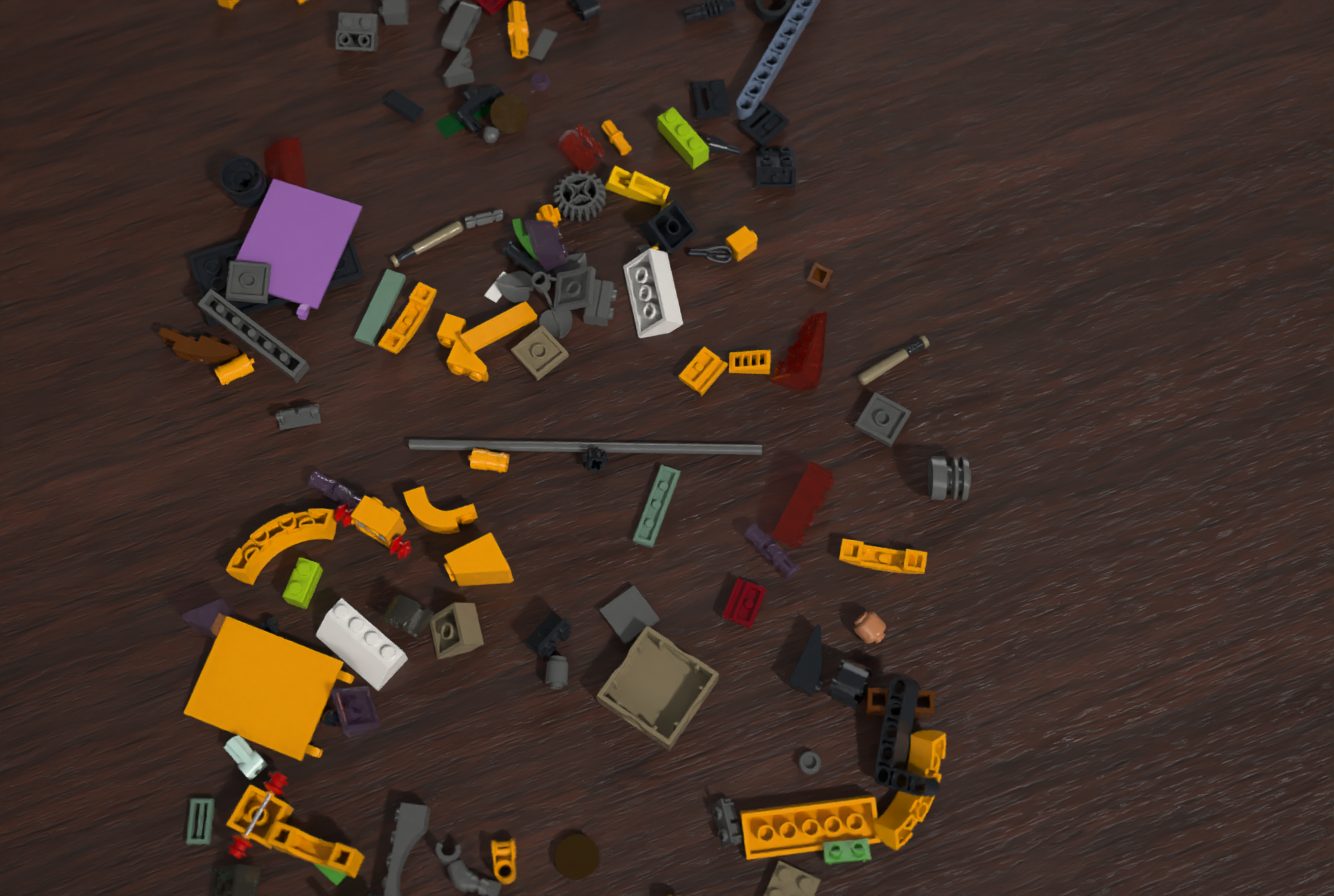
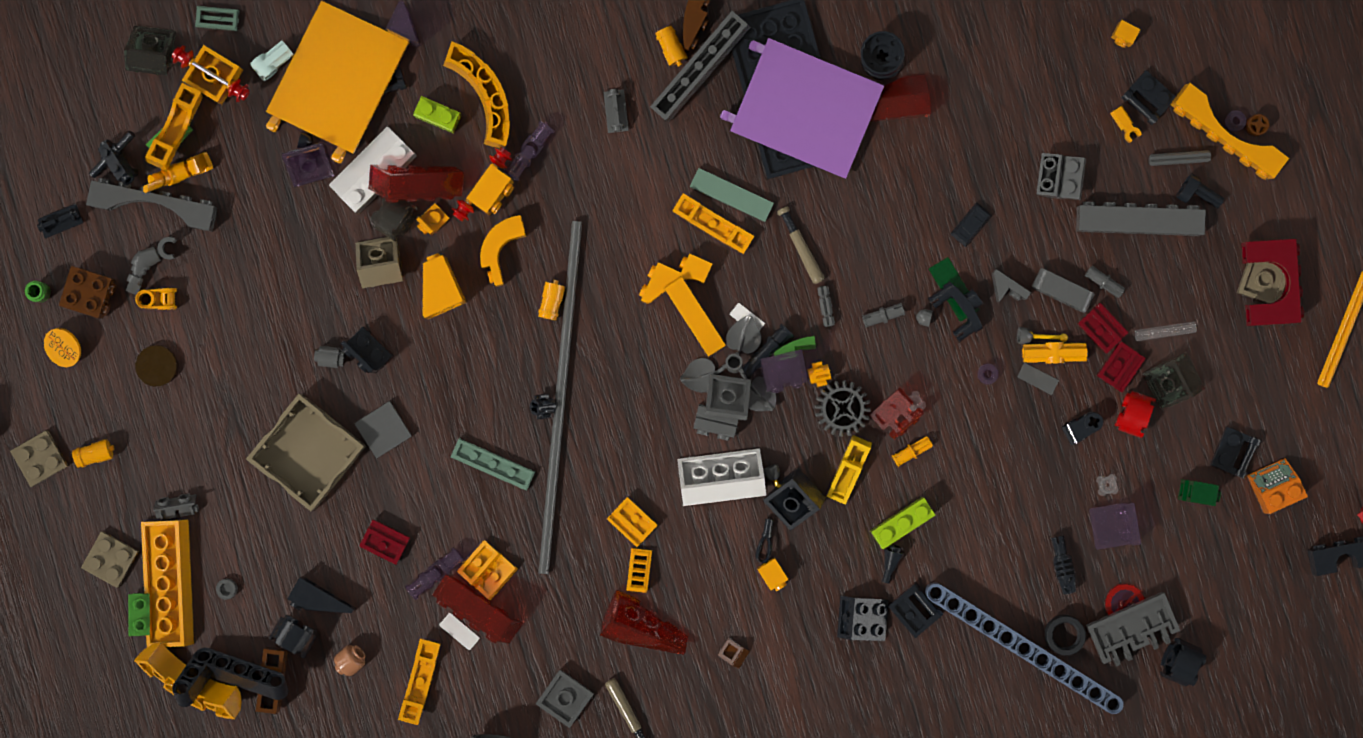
camera: 95 degrees right, 20 degrees up
(248, 282) = (760, 61): dark grey tile -> none
(358, 829) = (179, 171): none -> light orange piece
(371, 593) = (416, 182): none -> clear red wedge
(411, 582) = (432, 220): none -> light orange bracket
(490, 169) = (883, 315): none -> dark grey pin
(503, 54) = (1025, 336): none -> hinge
(509, 114) = (946, 338): dark brown tile -> none
(539, 352) = (665, 357): dark tan plate -> none
(716, 99) = (951, 562): black plate -> none
(763, 502) = (487, 570): none -> light orange slope
(828, 526) = (459, 631): none -> white sticker

